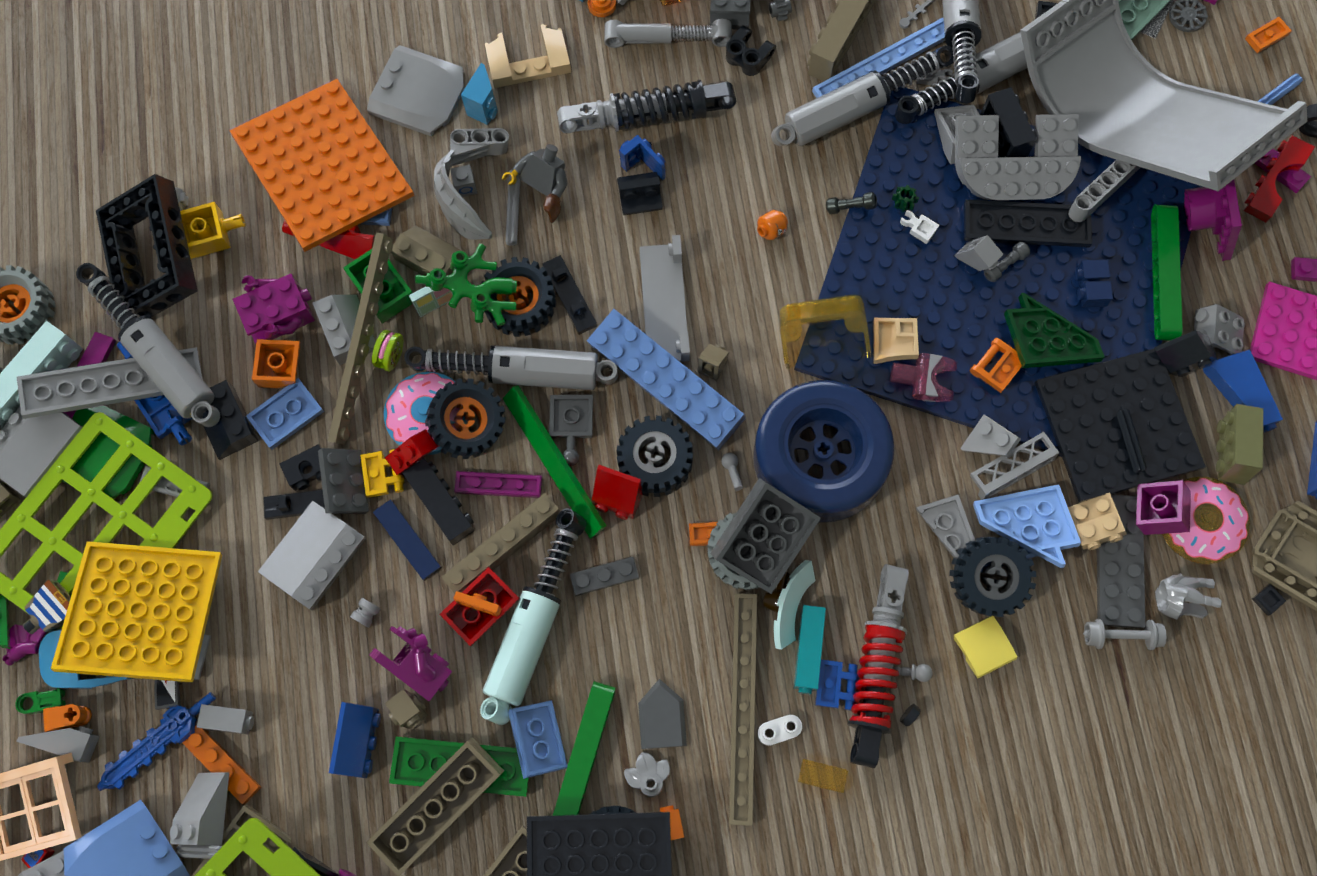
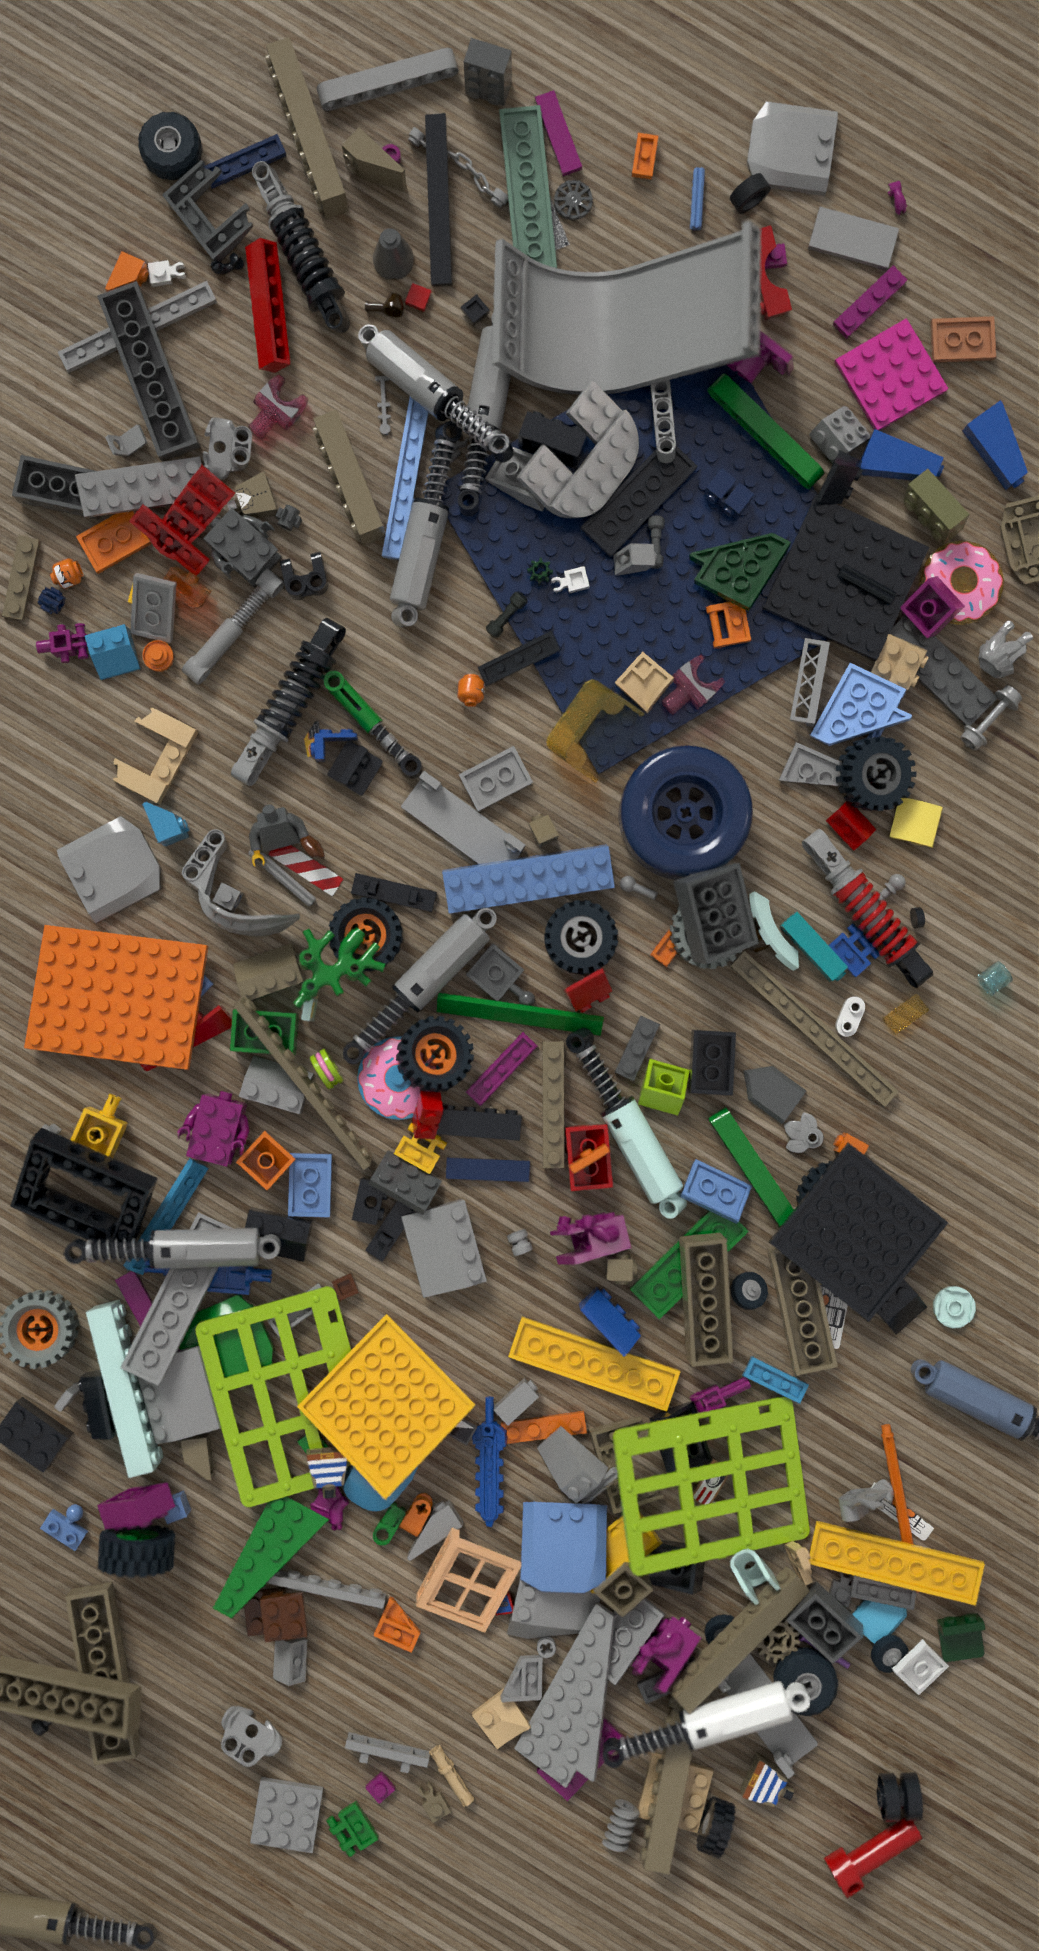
camera: 55 degrees left, 15 degrees up
(192, 325) = (171, 1206): none -> dark azure plate
(221, 505) = (345, 1286): none -> reddish brown plate
(307, 761) = (594, 1363): none -> yellow plate
(474, 841) = (749, 1290): none -> black wheel
(535, 221) = (307, 868): none -> sticker
(589, 622) = (664, 1087): none -> lime slope
(642, 643) = (712, 1062): none -> black brick
(683, 176) = (371, 722): none -> piece
(722, 296) = (495, 778): none -> light grey plate
(827, 237) = (519, 658): none -> black plate
(920, 826) = (992, 982): none -> clear light blue piece
(934, 595) = (851, 825): none -> red panel
(990, 438) = (777, 681): light grey wing -> none

